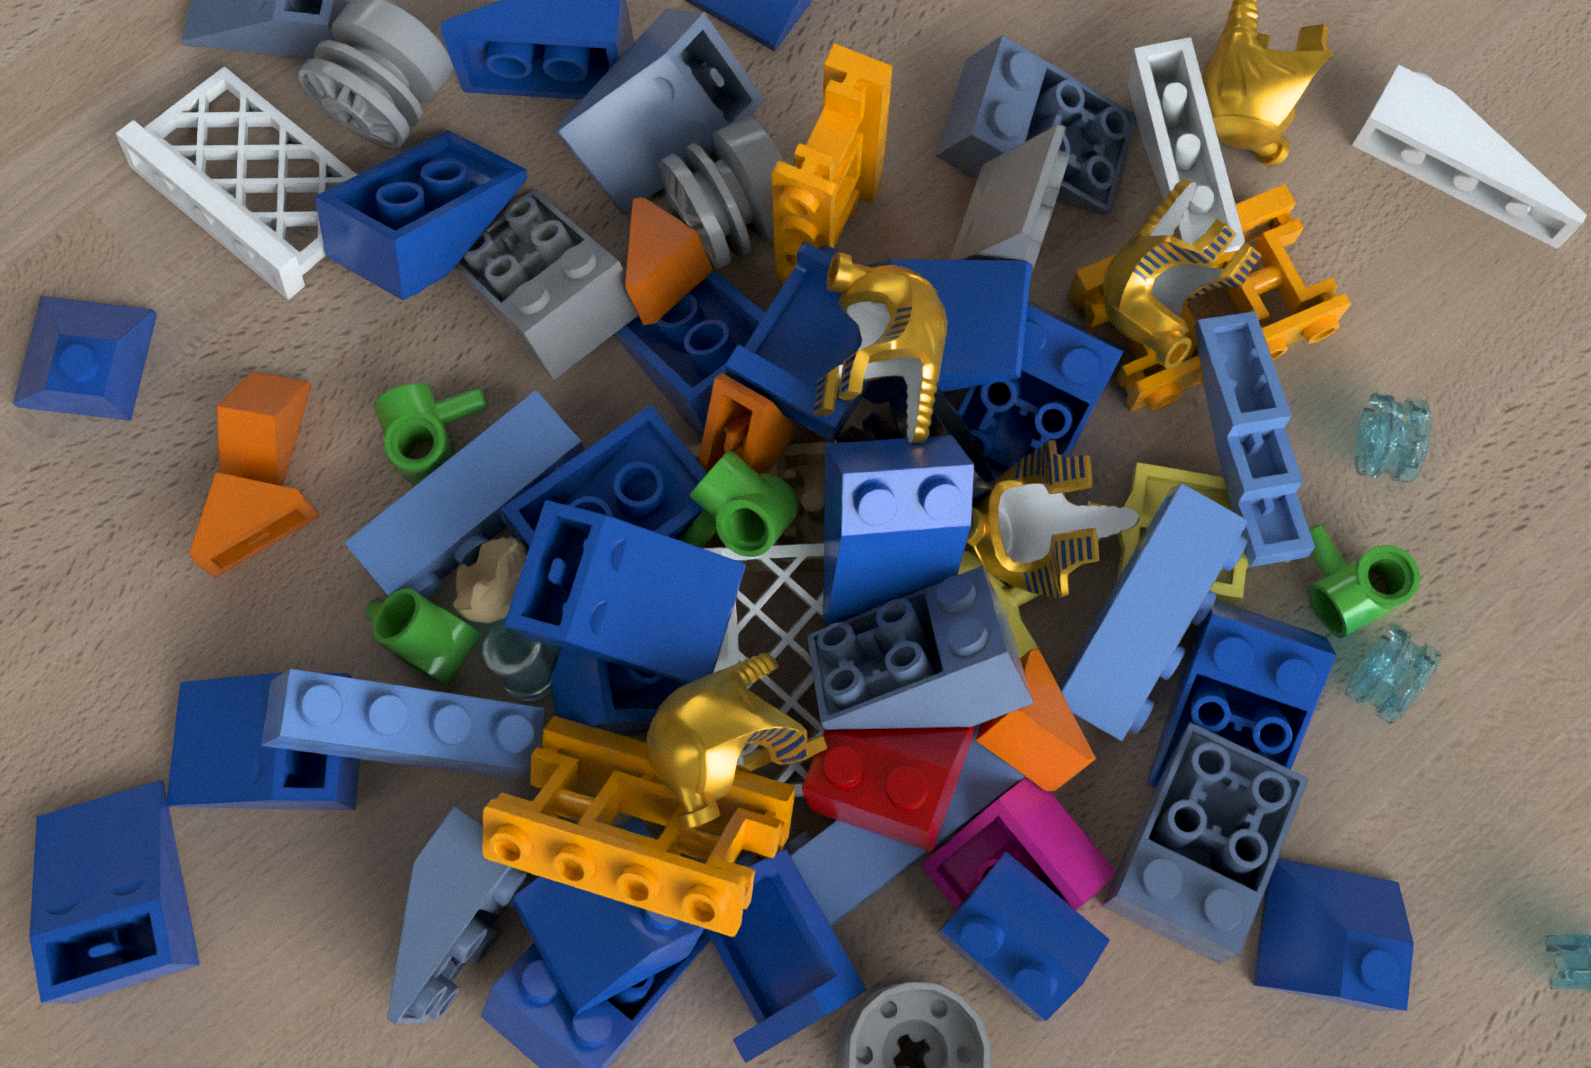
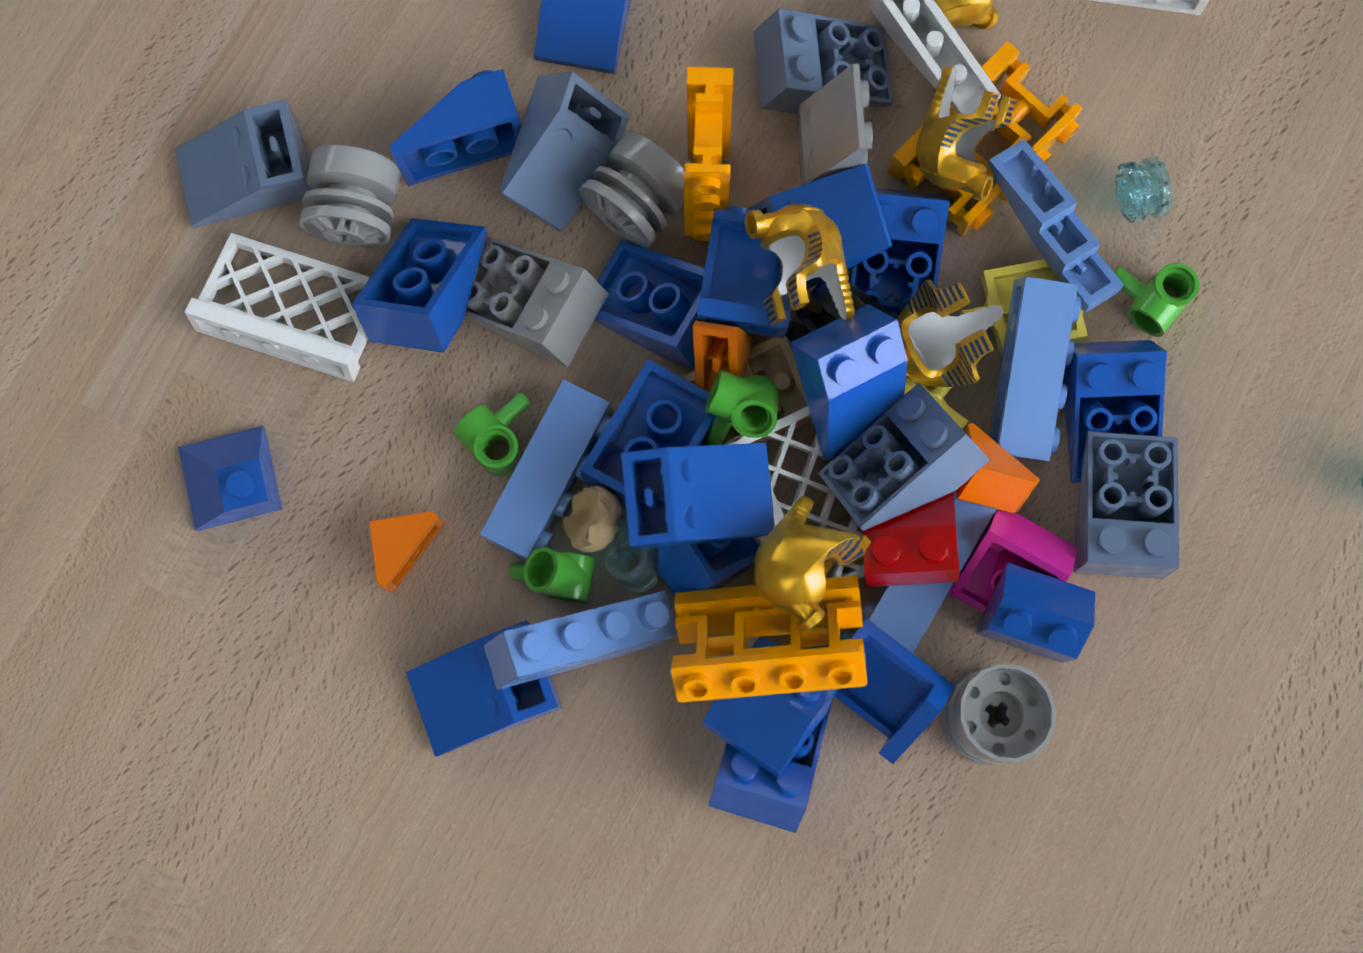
camera: 20 degrees left, 5 degrees up
(108, 897) = (426, 828): blue slope -> none
(260, 426) = (379, 478): orange slope -> none
(448, 918) = (662, 736): sand blue slope -> none
(662, 260) = (610, 253): orange slope -> none
(1335, 937) = (1231, 533): blue slope -> none
(1393, 674) = (1203, 348): clear light blue wheel -> none

